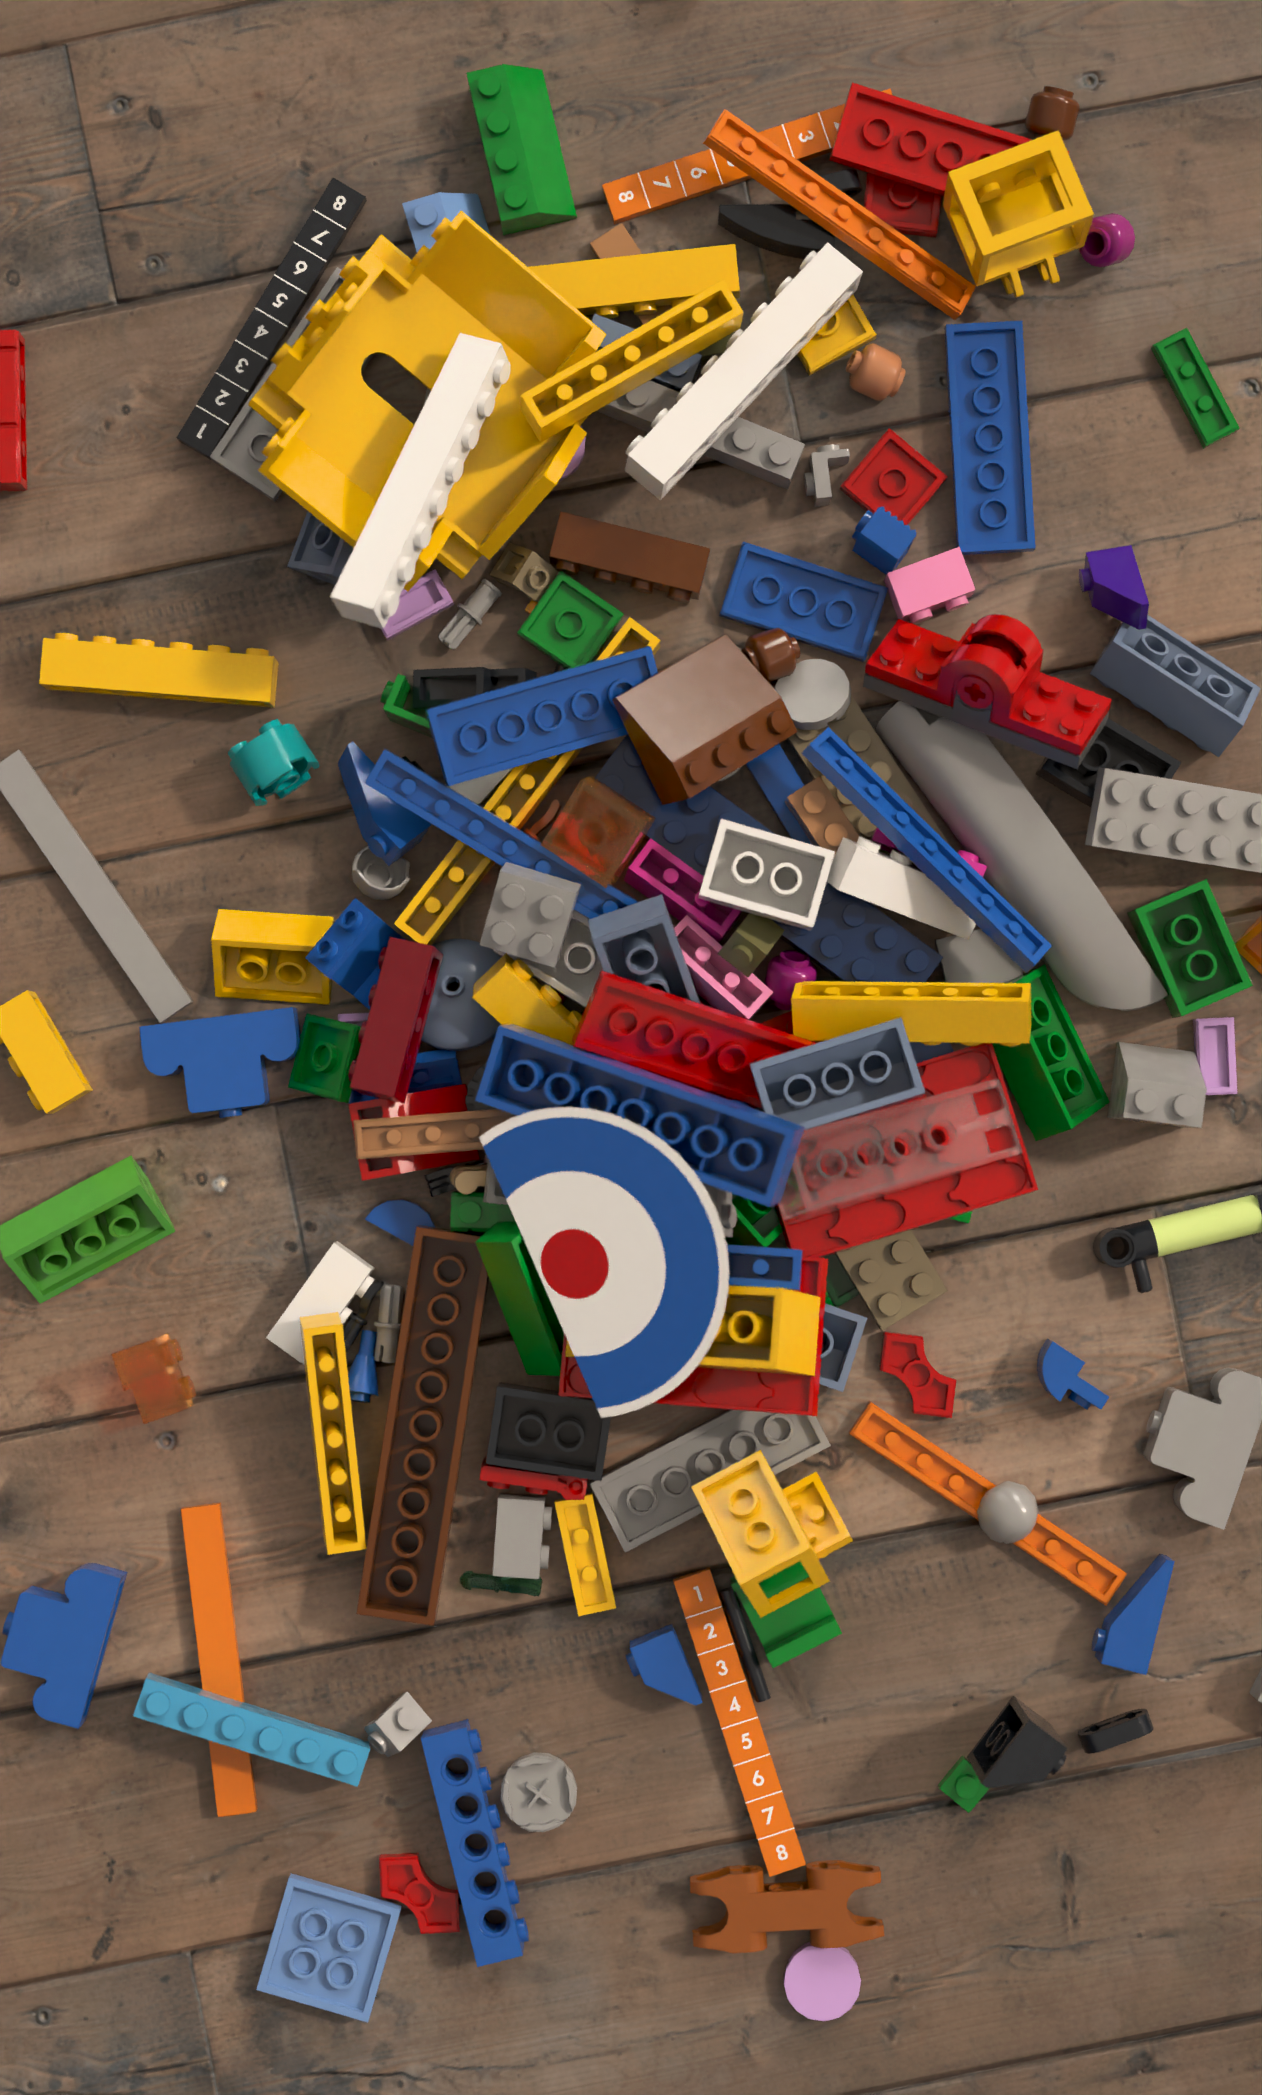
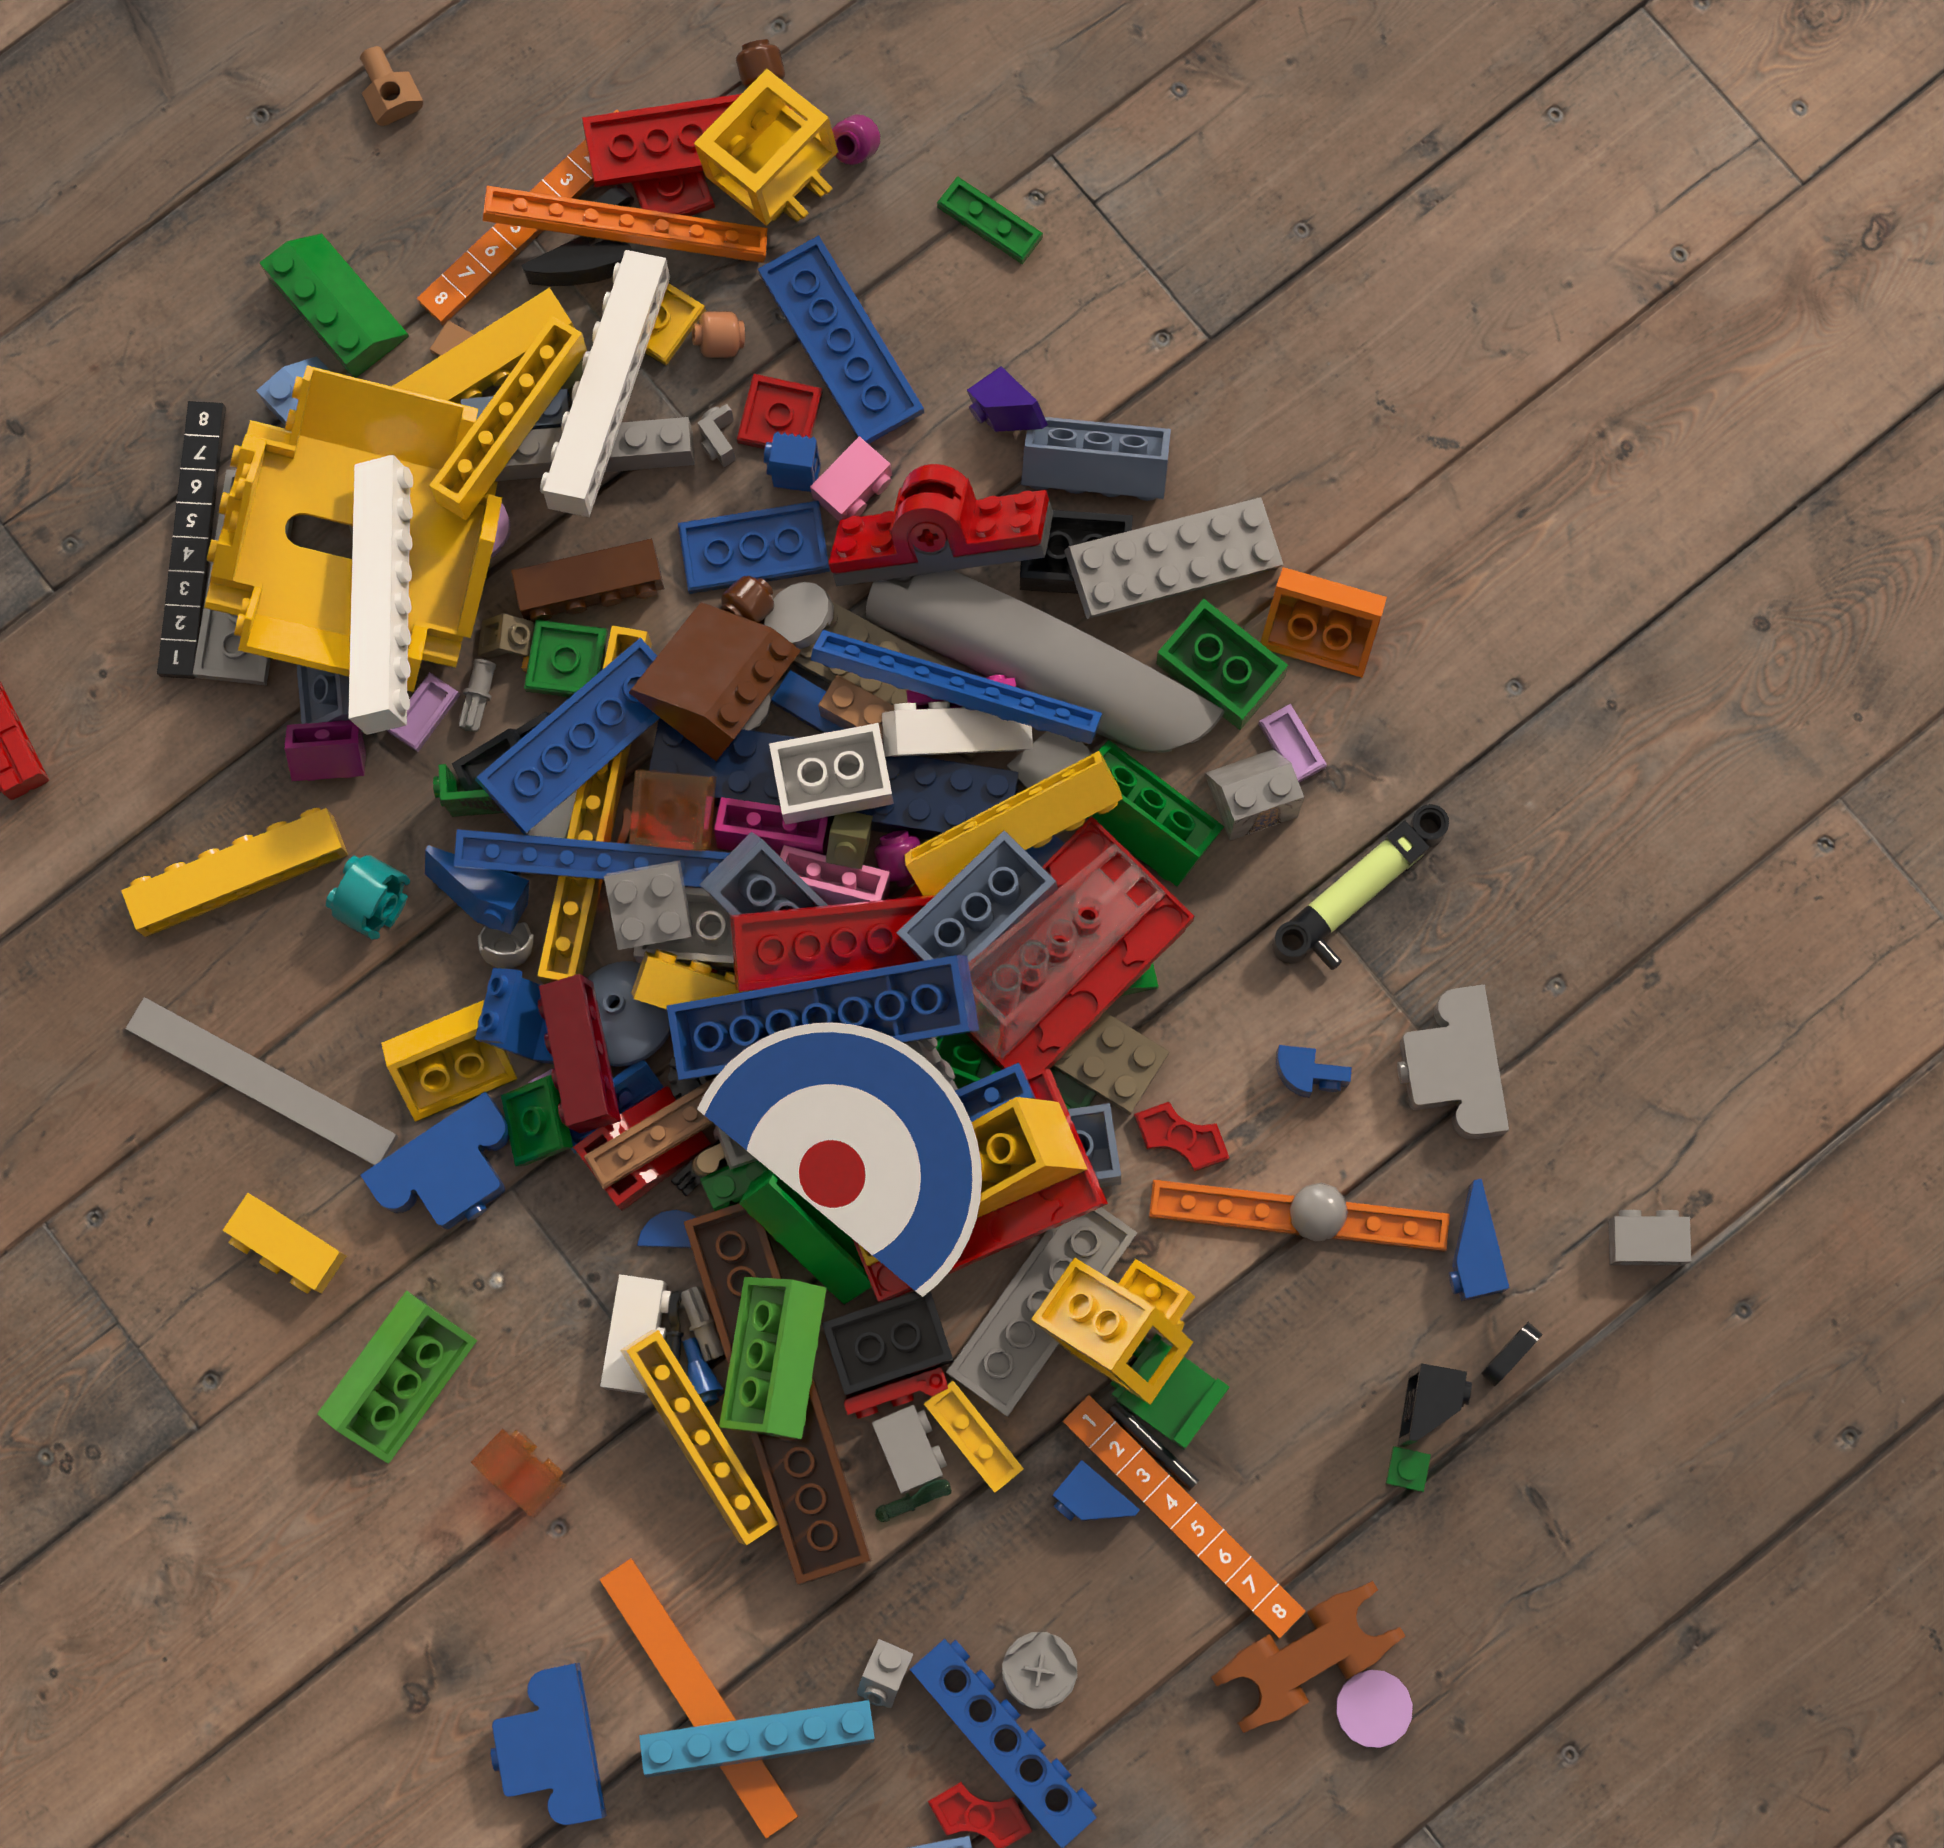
camera: 20 degrees left, 10 degrees down
(297, 598) = (325, 750): none -> magenta brick
(435, 1399) = (773, 1357): none -> bright green slope

